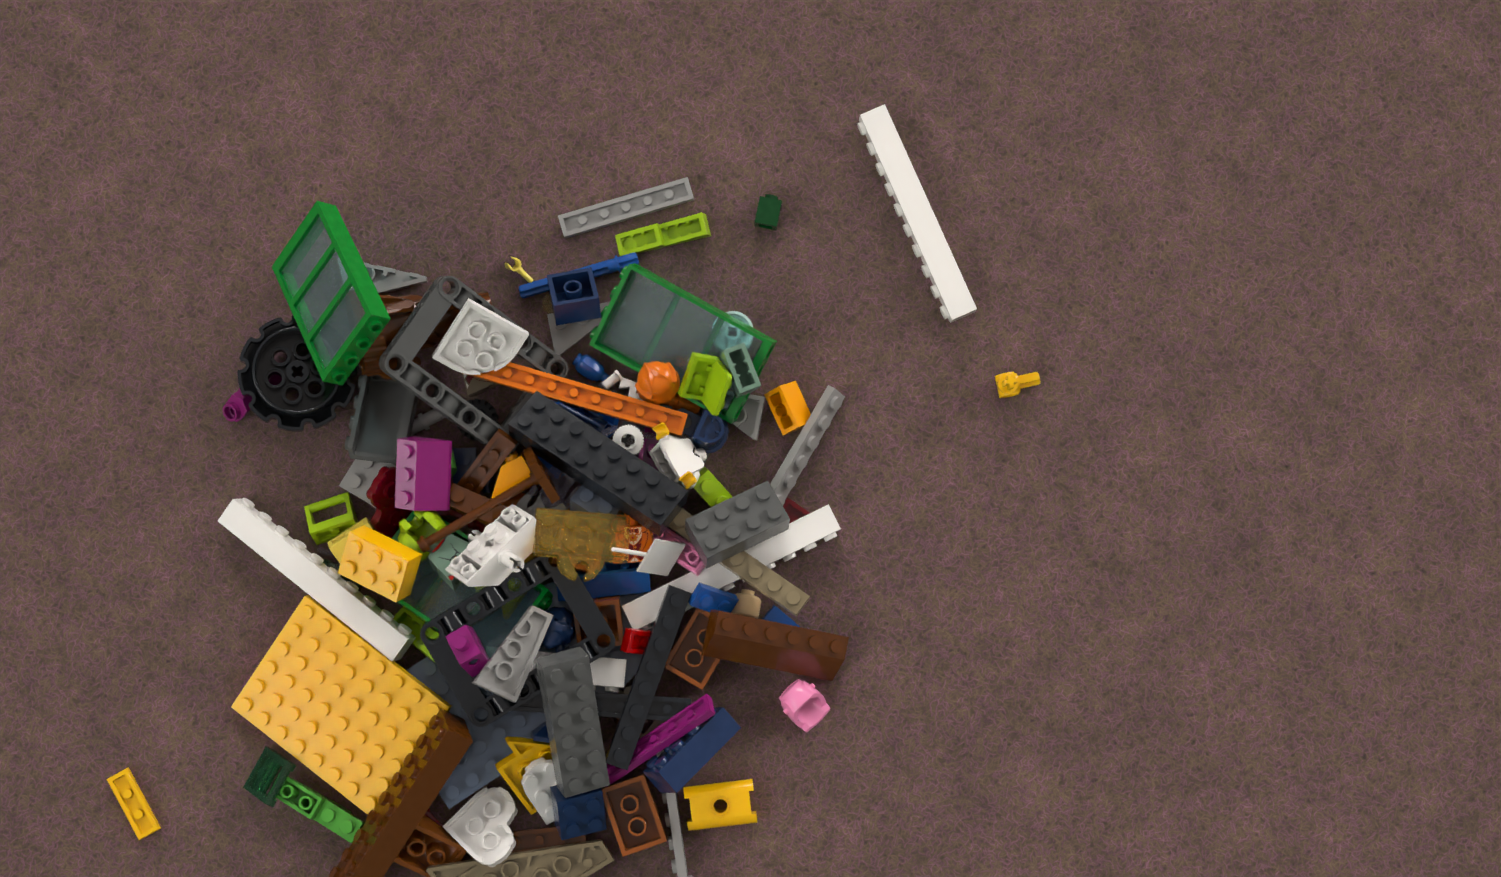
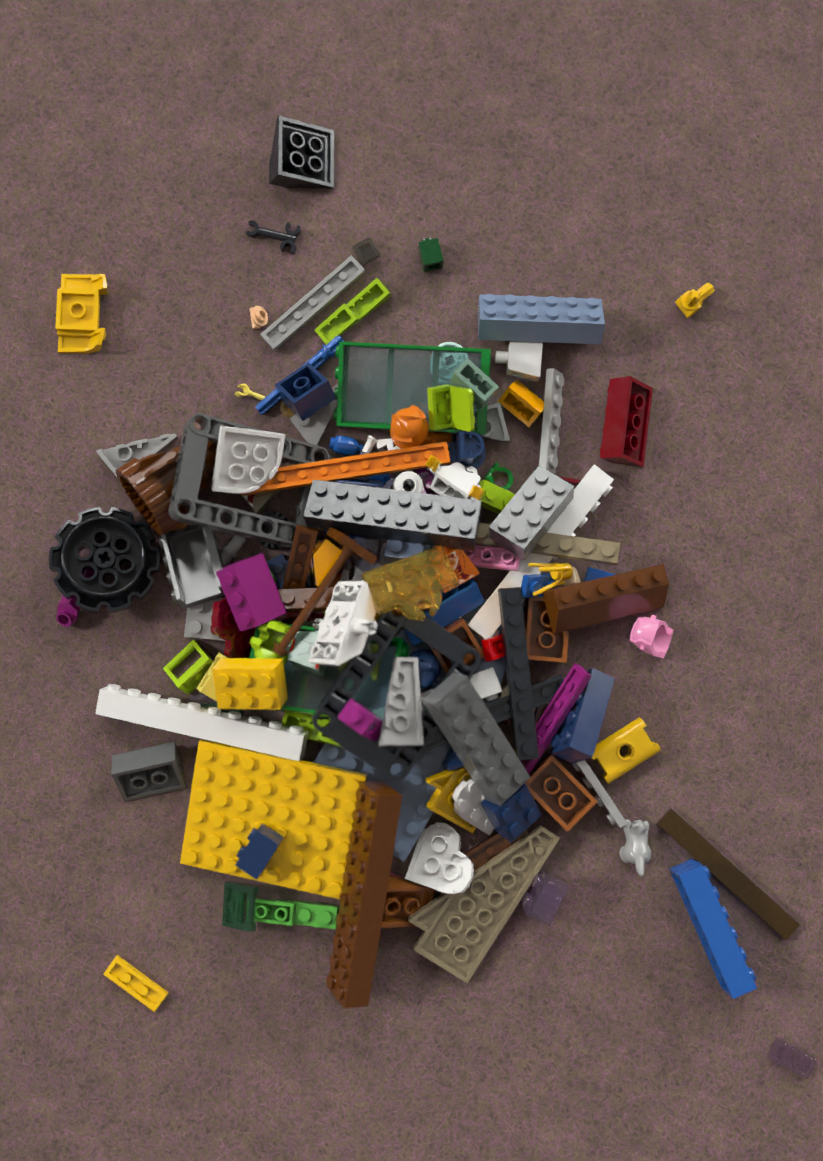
camera: 30 degrees left, 0 degrees up
(242, 602) = (148, 771): none -> dark grey slope
(312, 730) = (258, 851): none -> dark blue brick
(330, 293) = (101, 477): window -> none
(388, 110) = (79, 313): none -> yellow piece
(565, 196) = (258, 317): none -> light nougat plate
(633, 129) = (287, 238): none -> black bar
(659, 557) = (481, 569): white piece -> none
(687, 51) = (301, 155): none -> black slope
(704, 179) = (366, 251): none -> clear smoke plate
(719, 467) = (495, 467): none -> green piece
(737, 595) = (558, 571): none -> yellow plant
(809, 362) = (522, 359): none -> white torso
(844, 331) = (540, 319): none -> sand blue brick
(884, 476) = (626, 421): none -> dark red slope
(917, 214) = (550, 201): white brick -> none

